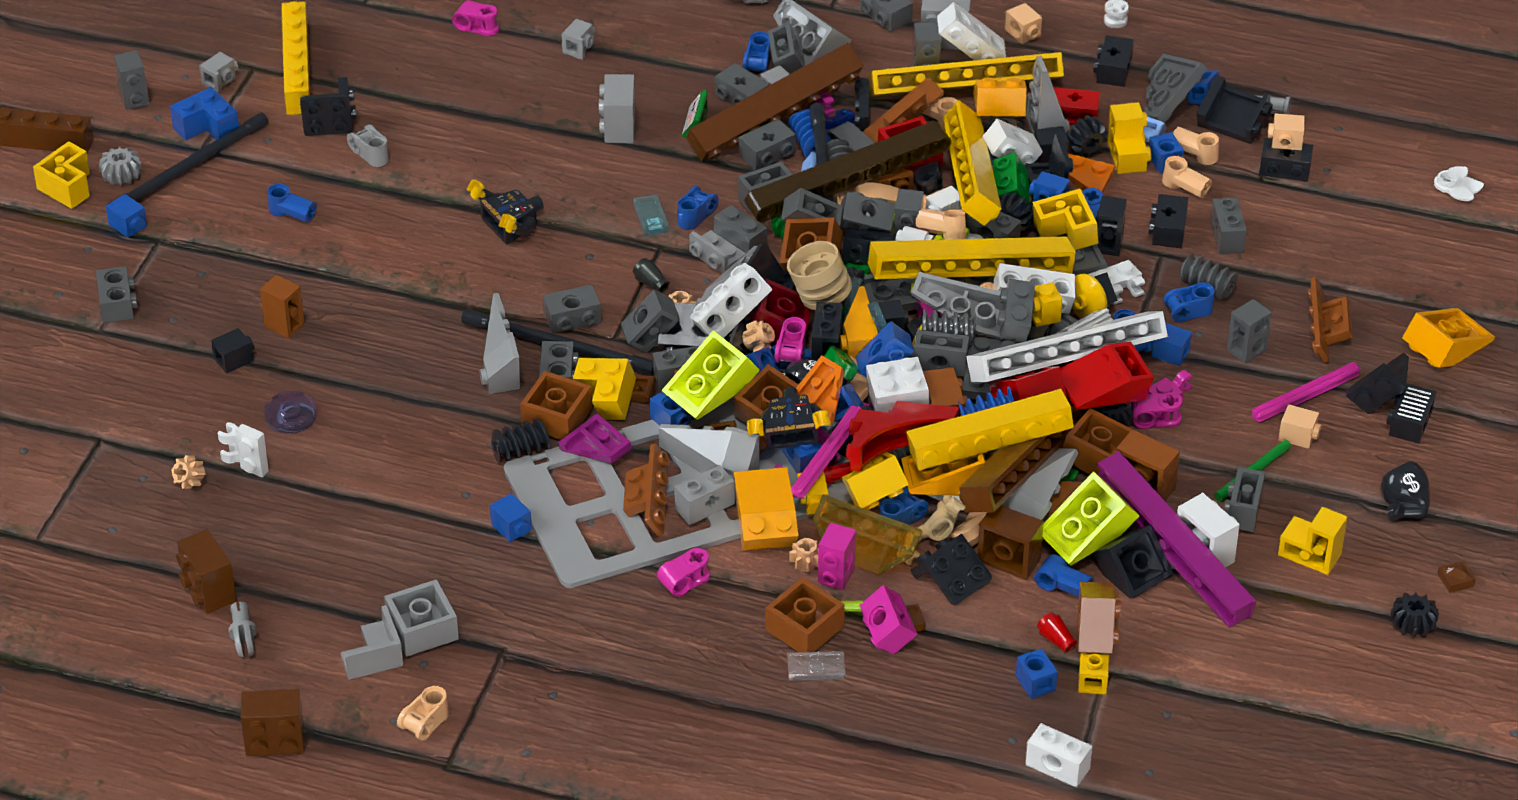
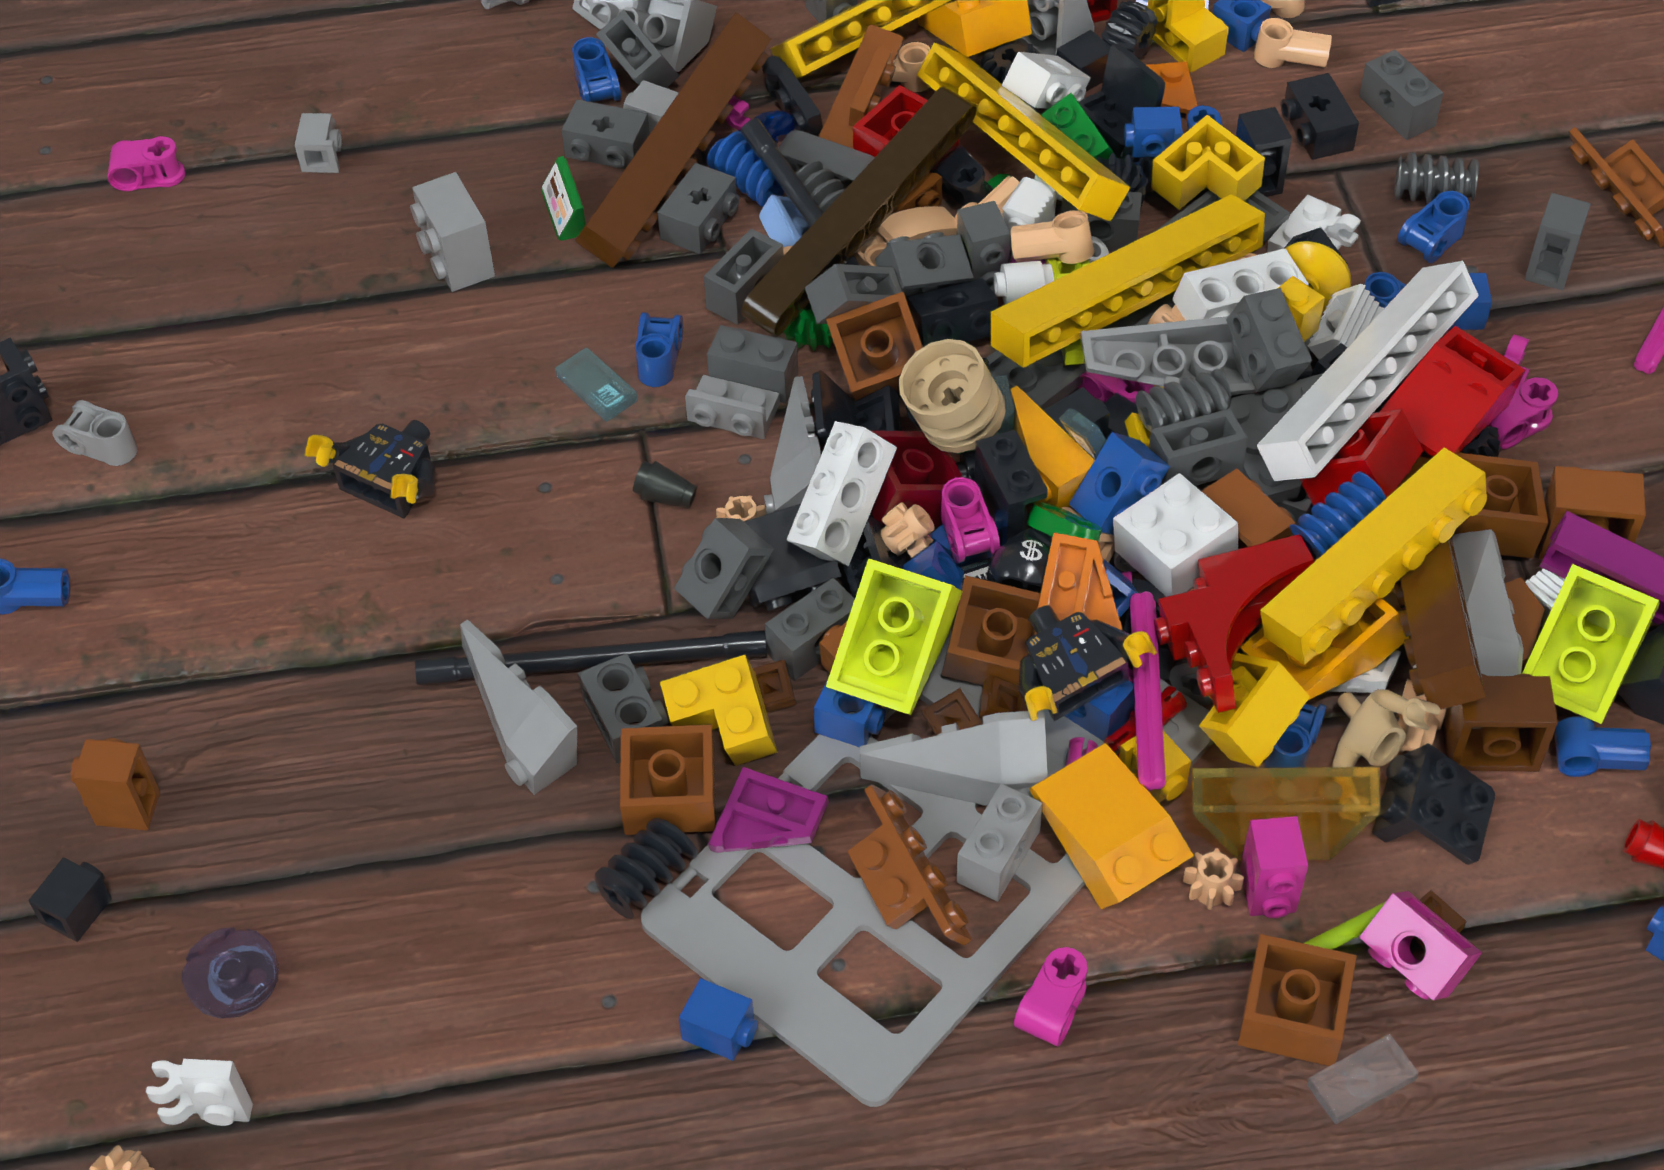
camera: 25 degrees left, 10 degrees up
(572, 309) = (561, 599): dark grey brick -> none

